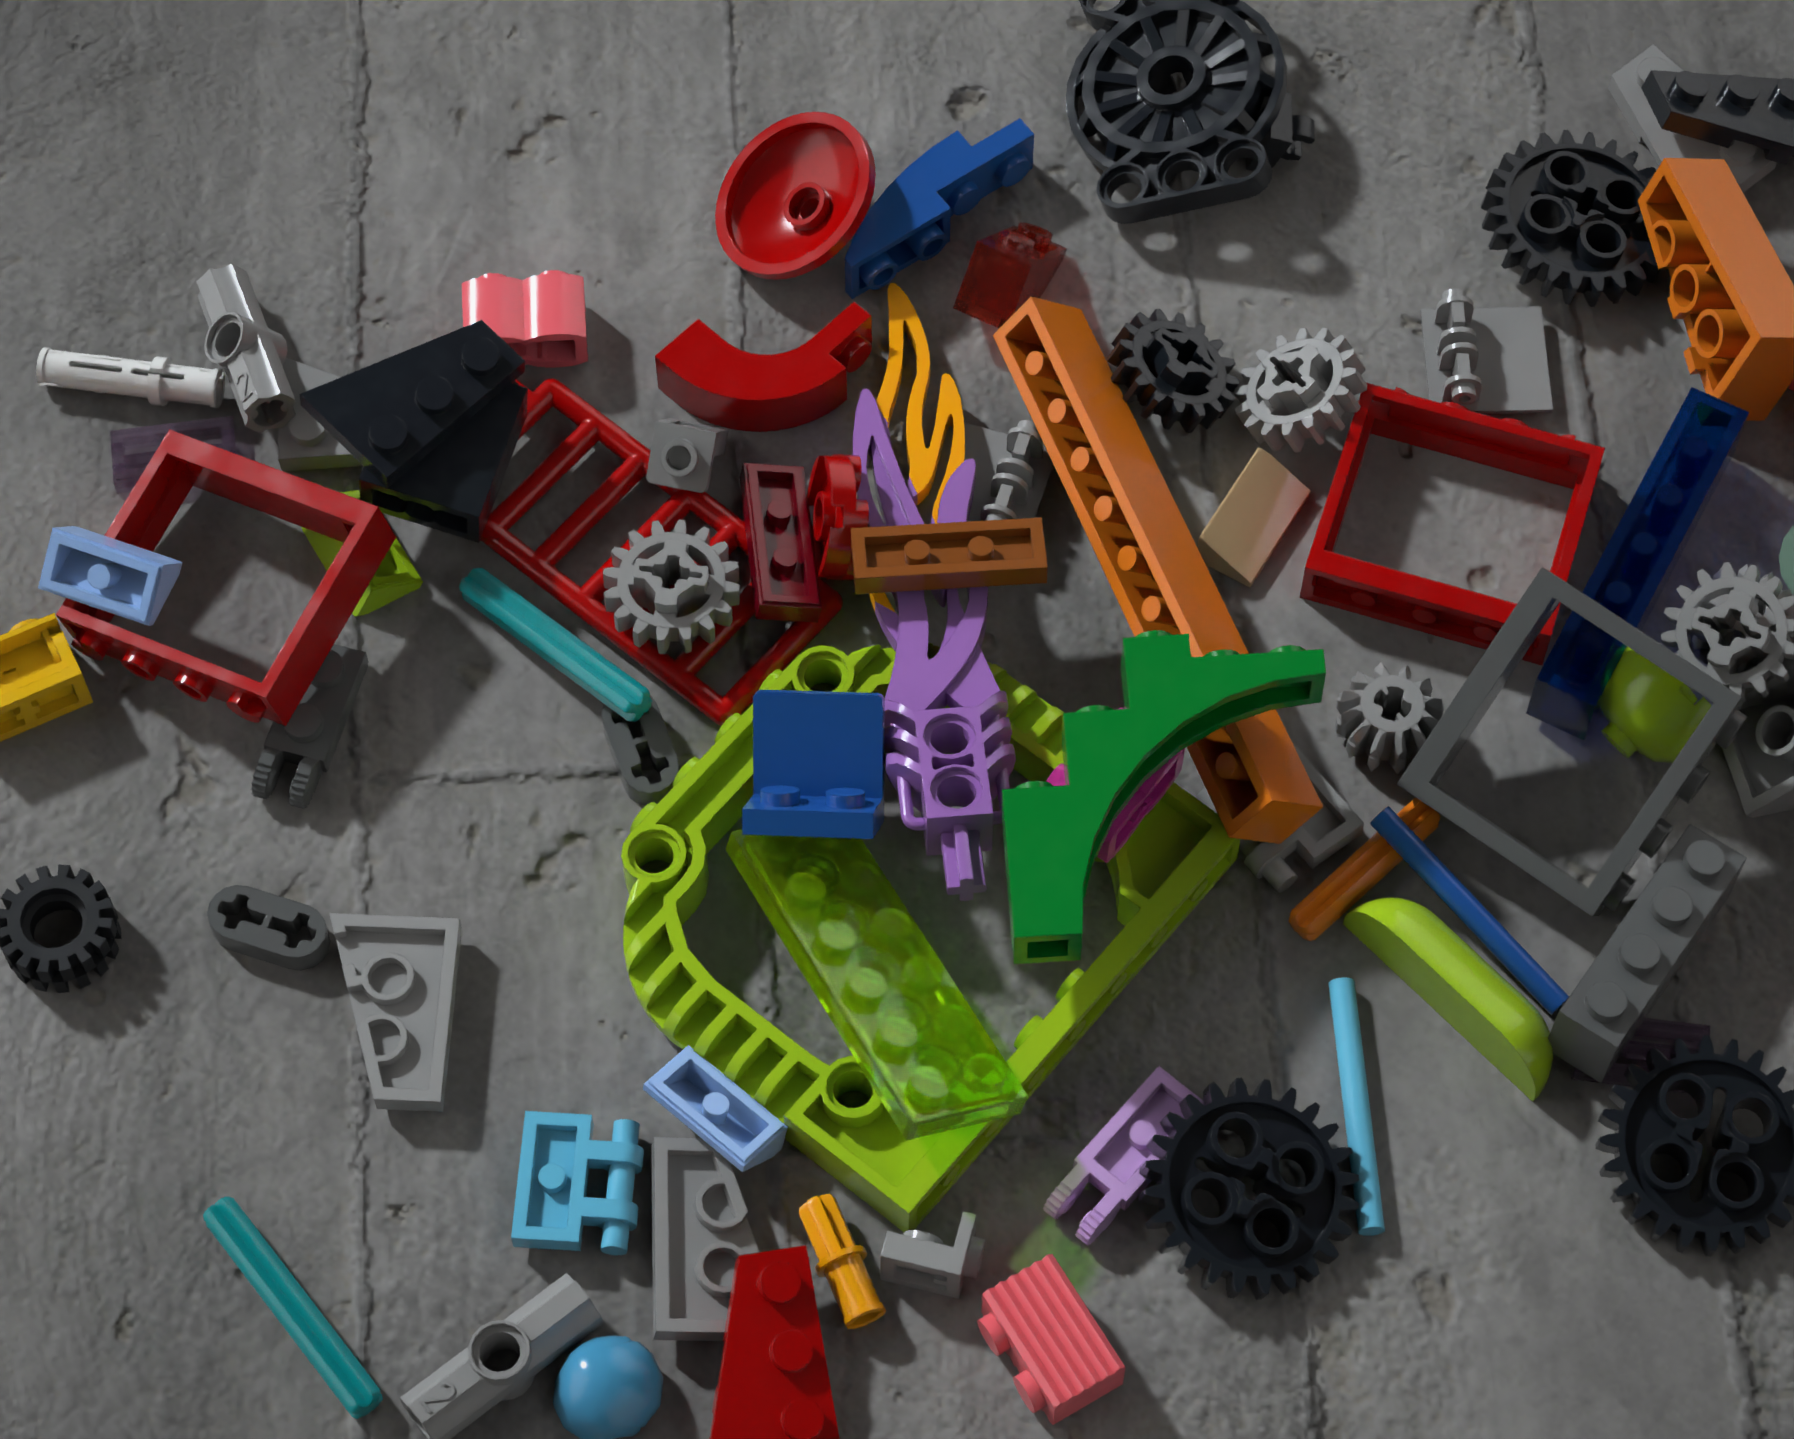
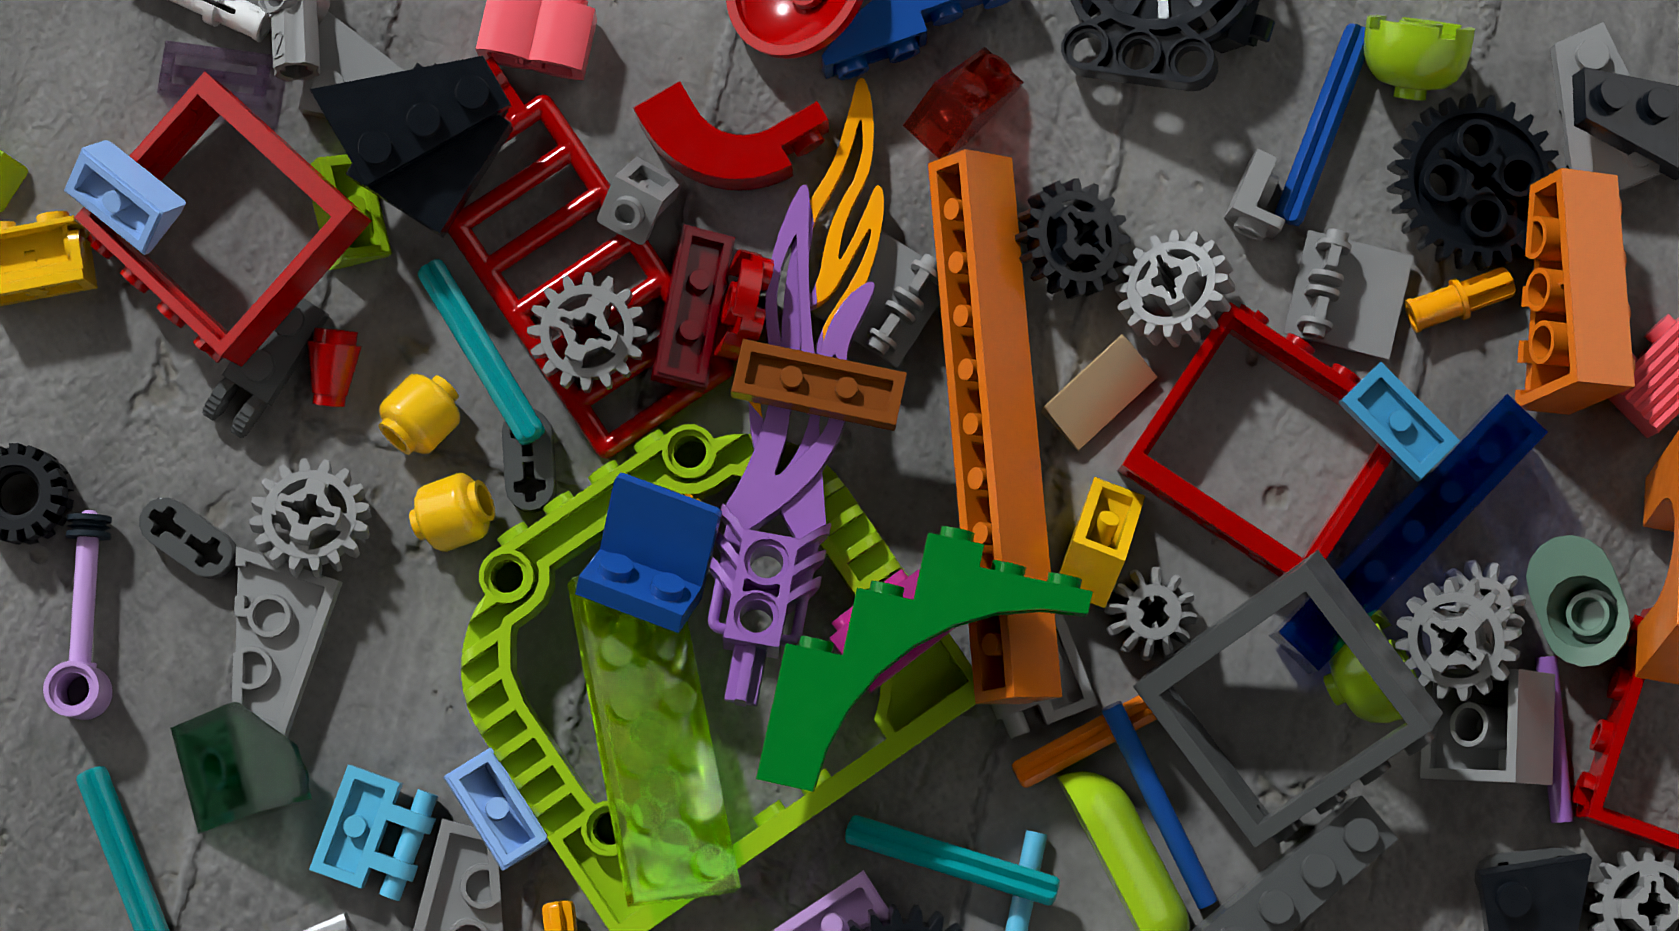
camera: 20 degrees right, 20 degrees up
(150, 945) = (88, 530): none -> lavender piece
(388, 701) = (332, 365): none -> red cone
(394, 1149) = (237, 767): none -> clear green slope
(408, 861) = (310, 494): none -> light grey gear
(503, 725) = (419, 414): none -> yellow head
(569, 815) = (452, 512): none -> yellow head
(1256, 1029) = (952, 860): none -> teal axle
(1312, 631) = (1102, 538): none -> yellow slope
(1351, 300) = (1255, 187): none -> light grey bracket
(1400, 209) = (1322, 126): none -> blue axle
(1472, 109) = (1416, 53): none -> lime cylinder
(1587, 442) = (1399, 421): none -> dark azure plate
(1604, 334) = (1459, 298): none -> light orange axle

